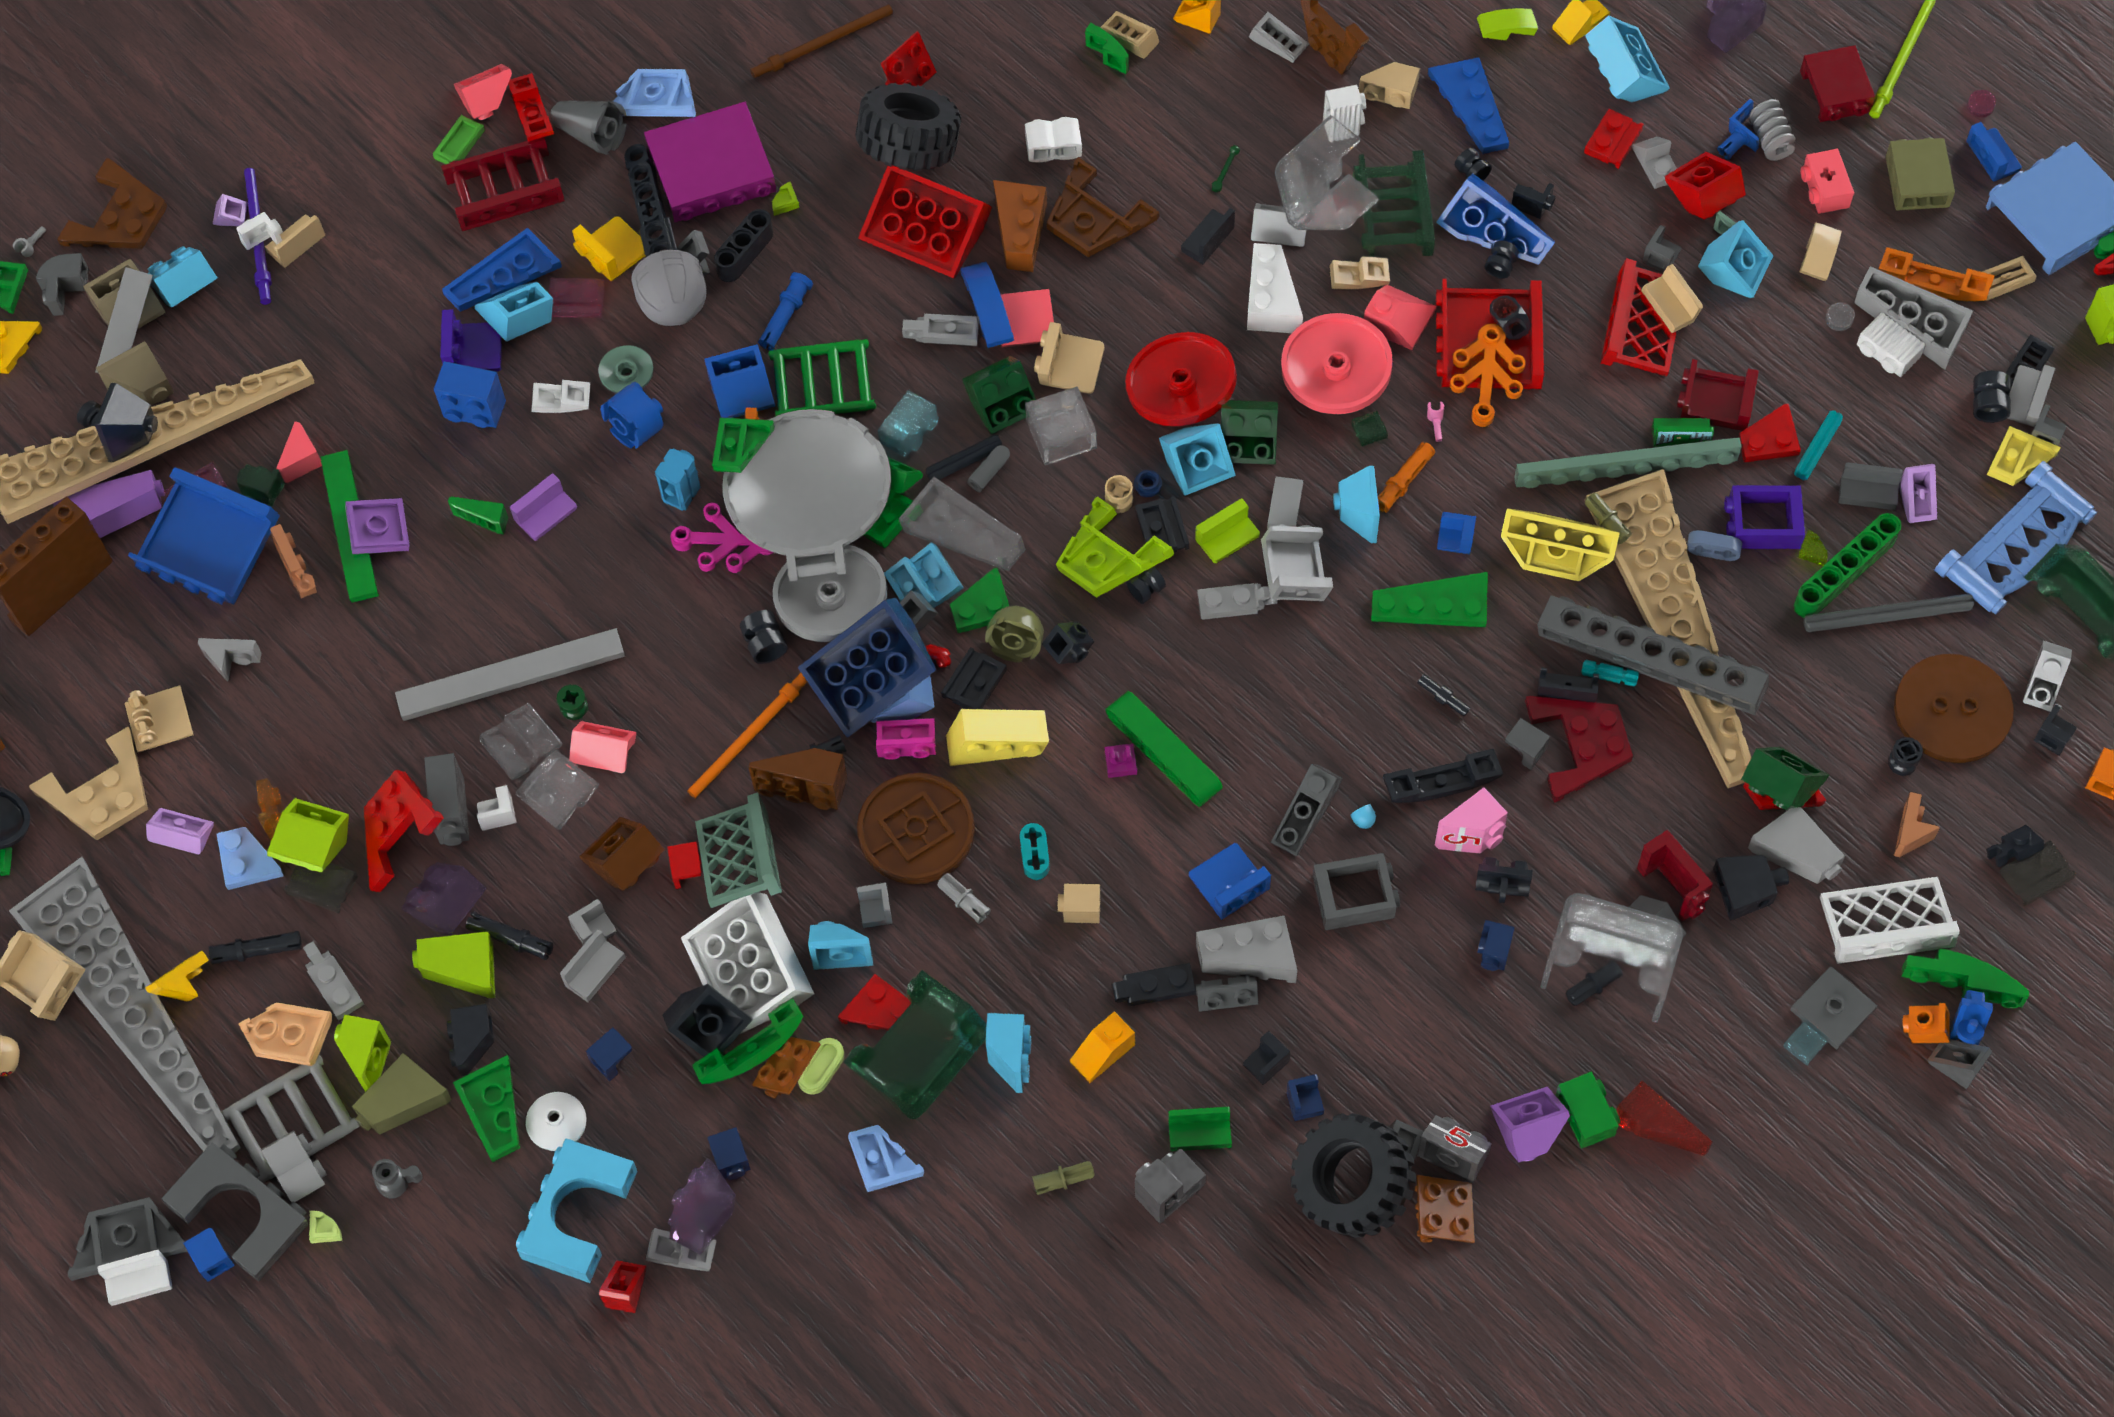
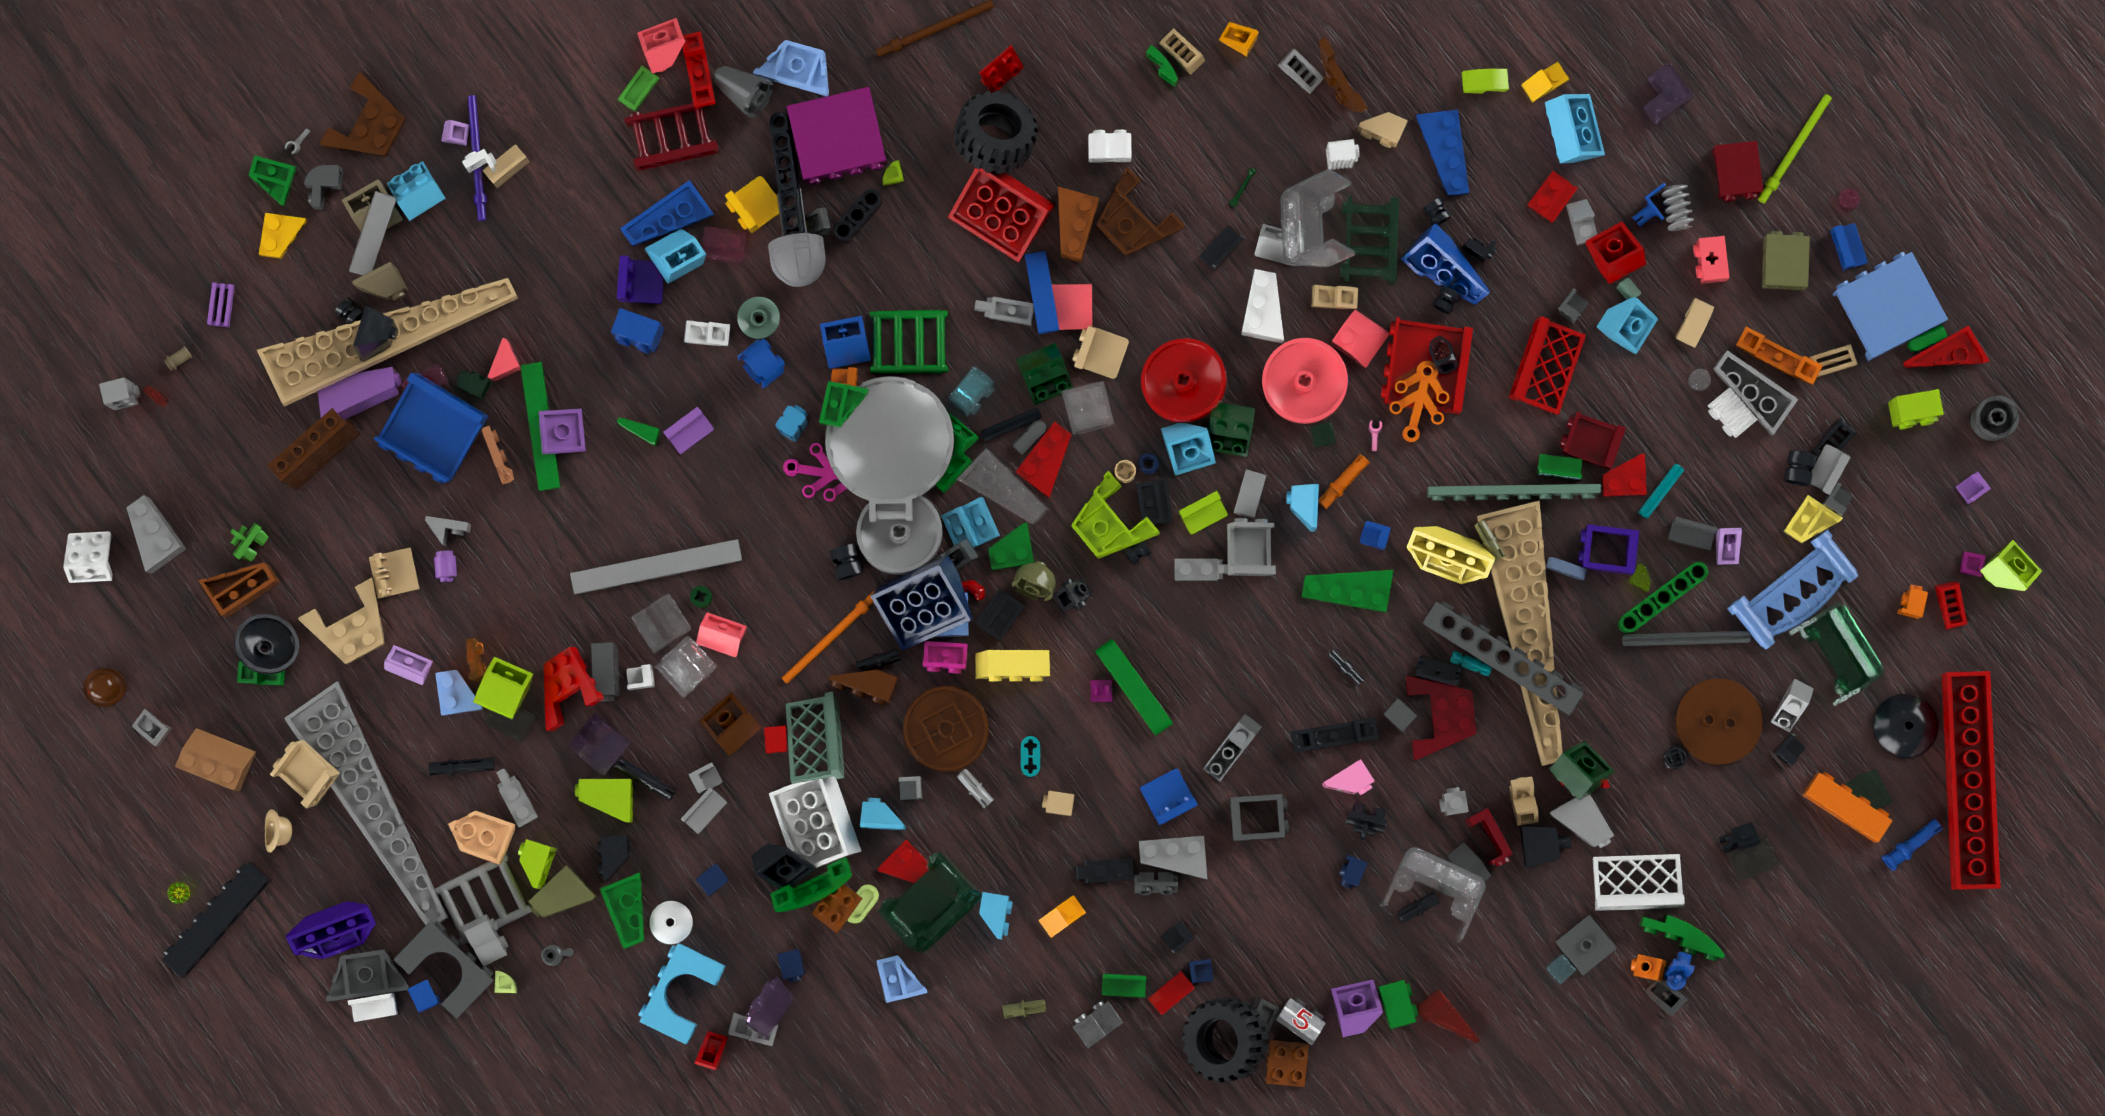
camera: 10 degrees right, 20 degrees up
(76, 1180) = (332, 930): none -> dark purple wedge
(176, 982) = (403, 787): yellow slope -> none
(227, 700) = (445, 566): none -> medium lavender brick
(789, 302) = (890, 269): blue pin -> none
(1014, 492) = (1045, 459): none -> red wing
(1268, 1135) = (1171, 993): none -> red slope
(1364, 816) = (1273, 758): medium azure hinge -> none
(1619, 842) = (1454, 802): none -> light grey brick
(1673, 299) = (1571, 355): tan panel -> none
(1711, 828) = (1523, 801): none -> tan brick
(1912, 831) = (1665, 819): nougat slope -> none

